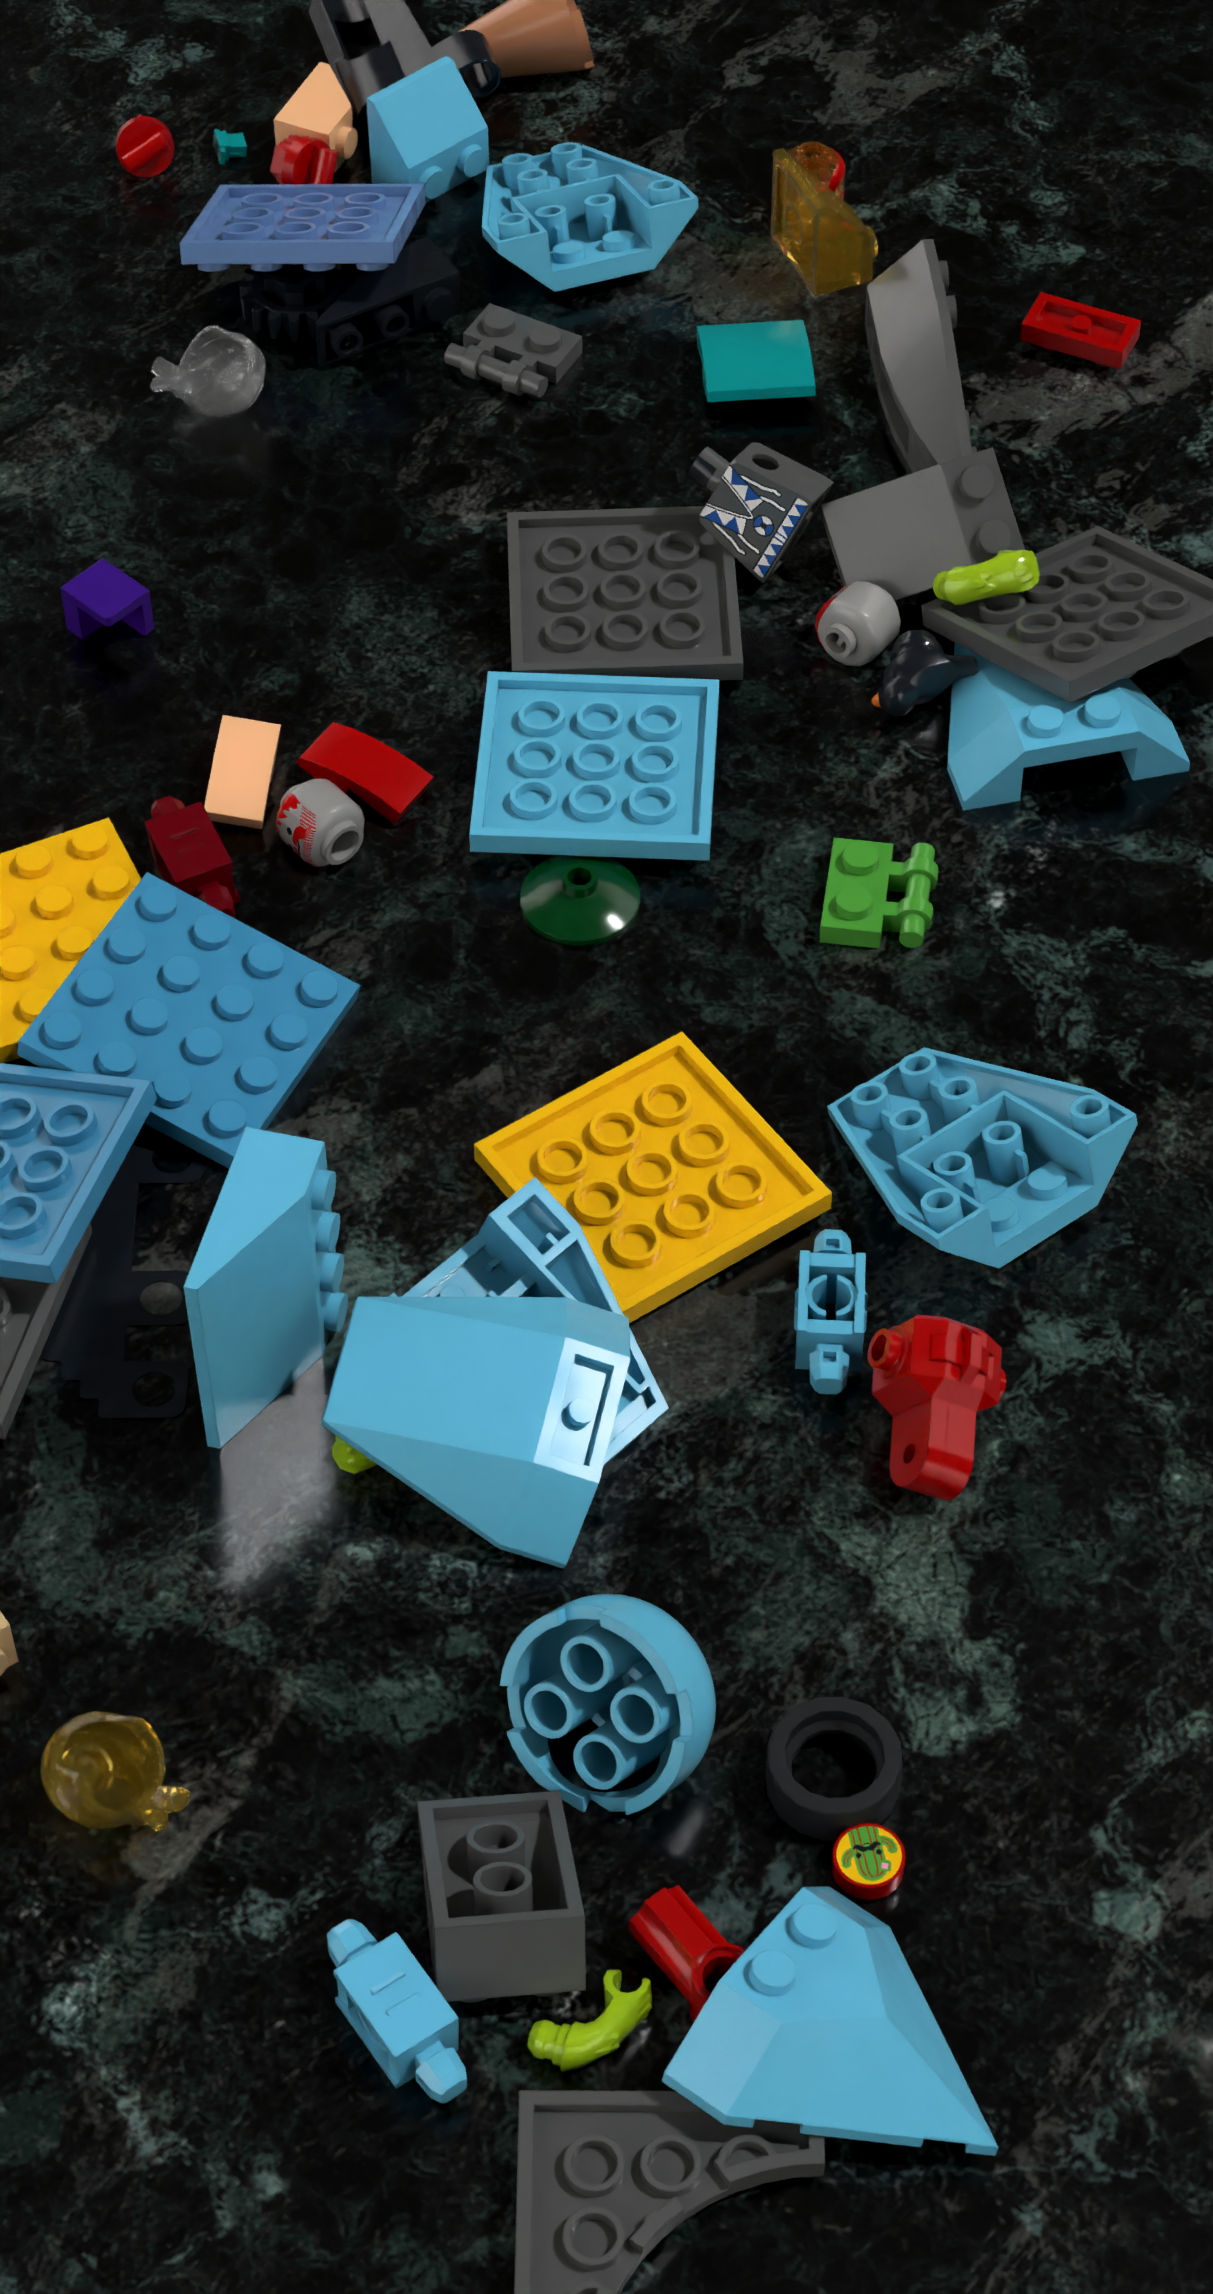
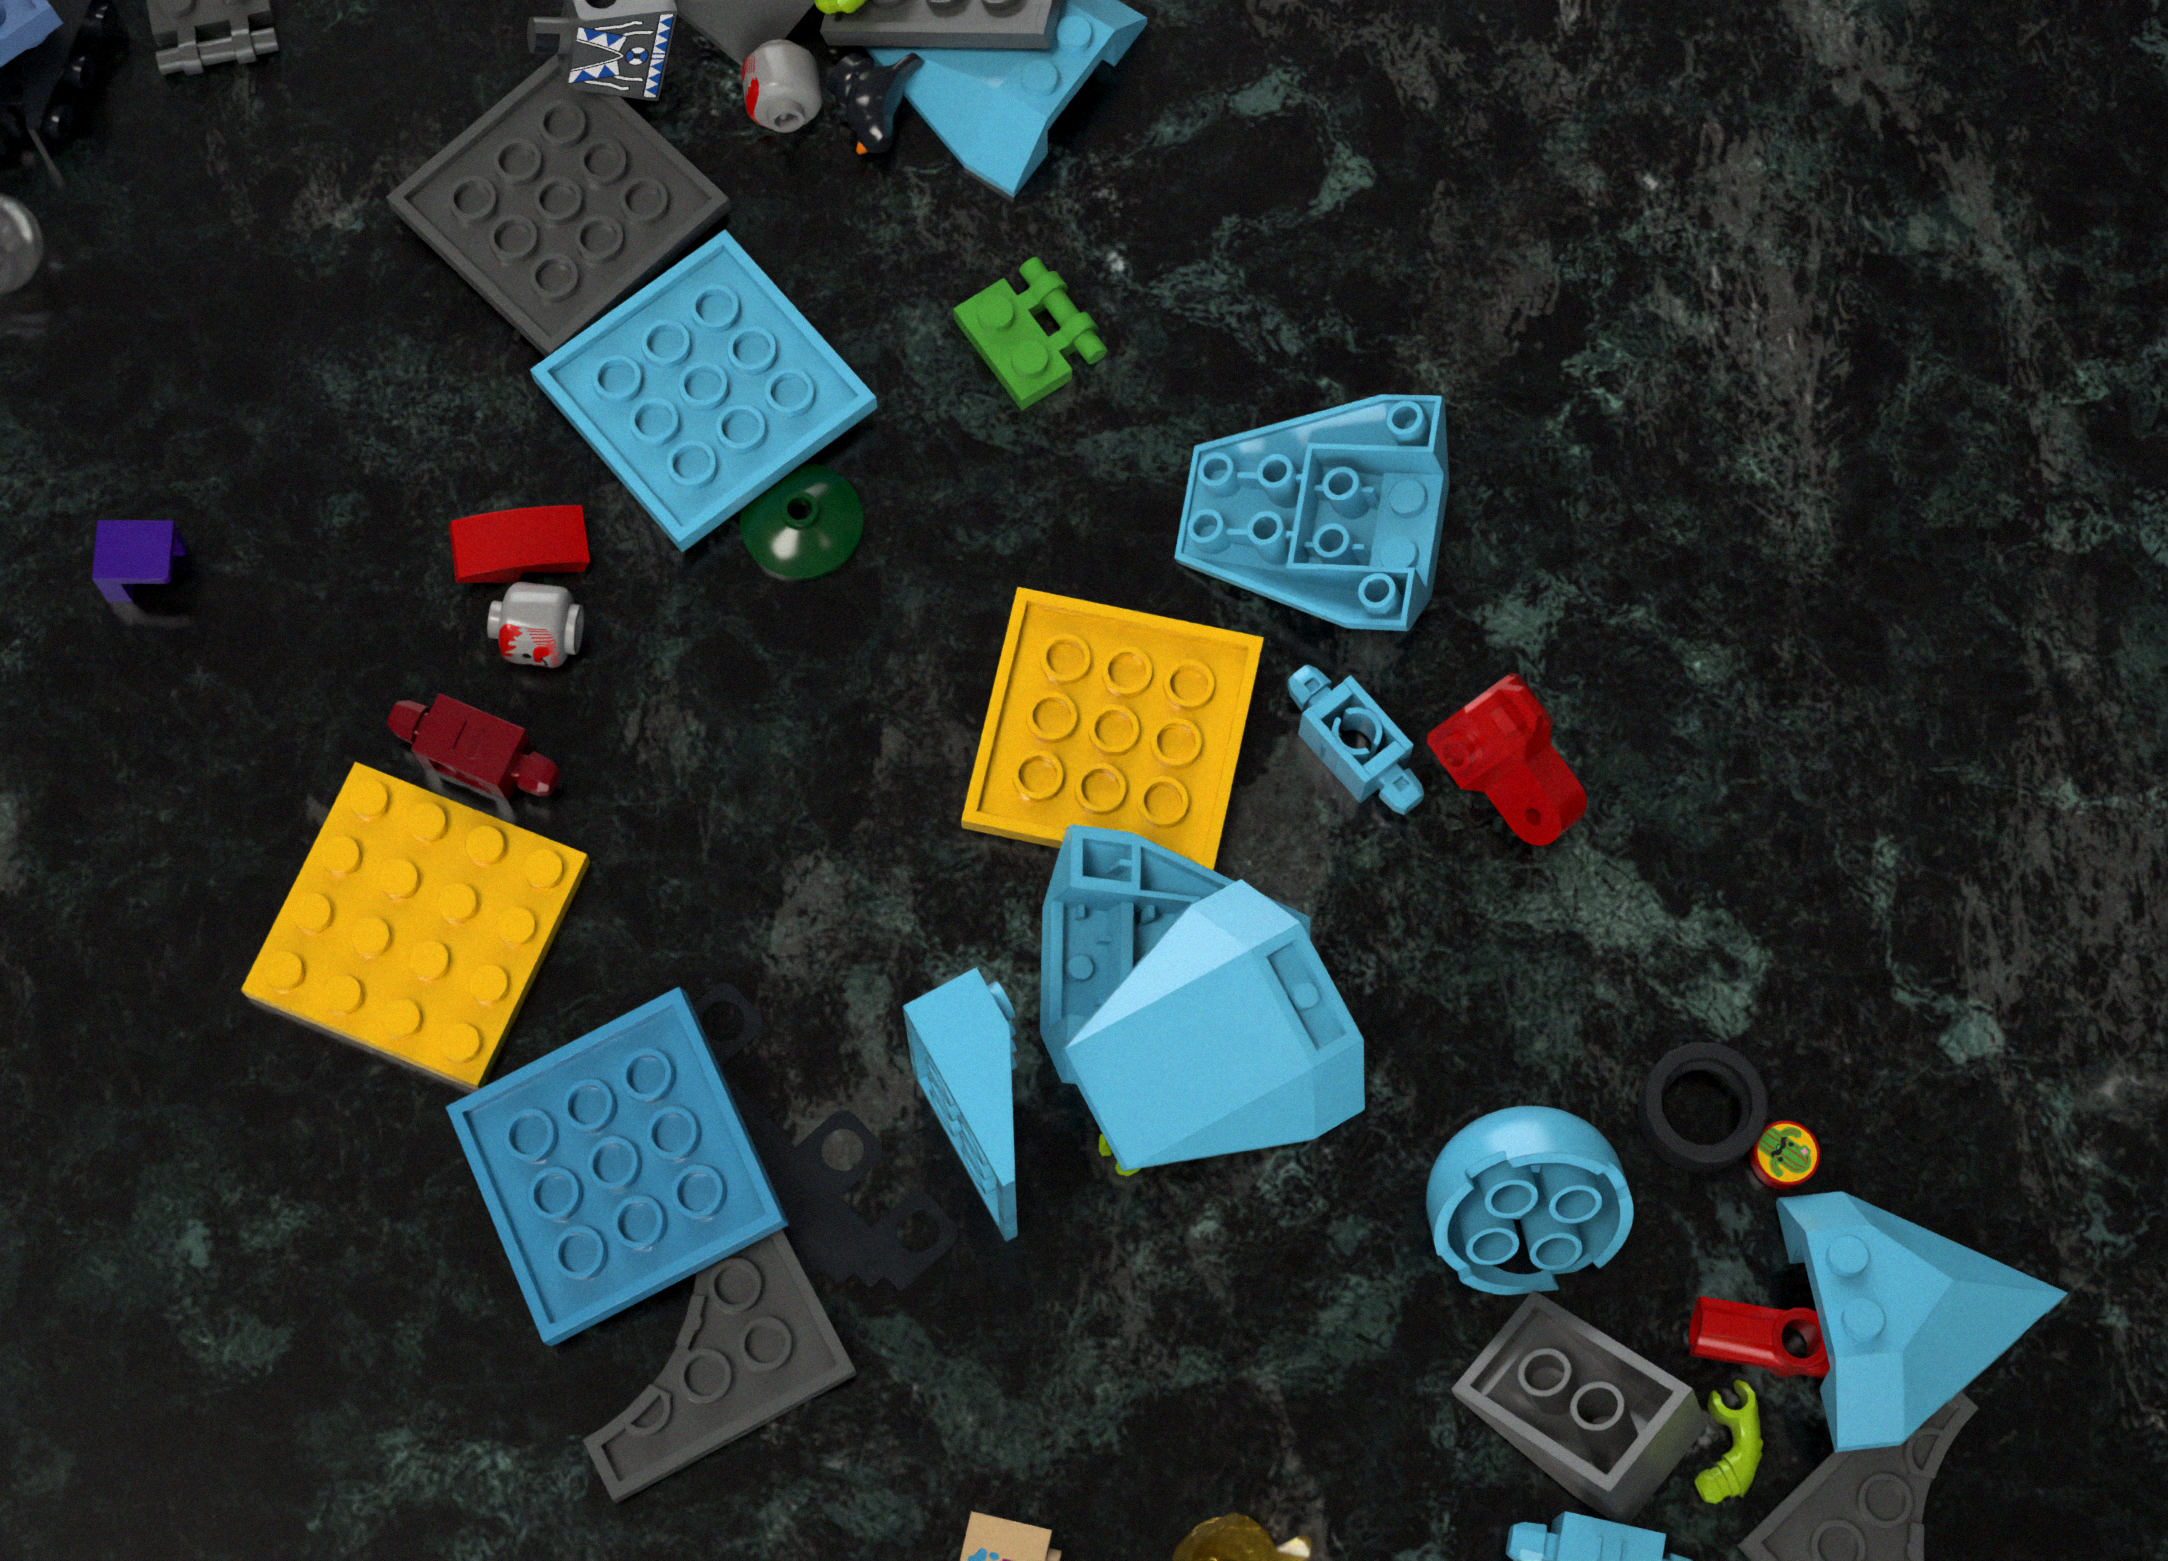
camera: 45 degrees left, 20 degrees up
(196, 1008) = (626, 893): dark azure plate -> none
(242, 771) = (421, 626): light nougat slope -> none

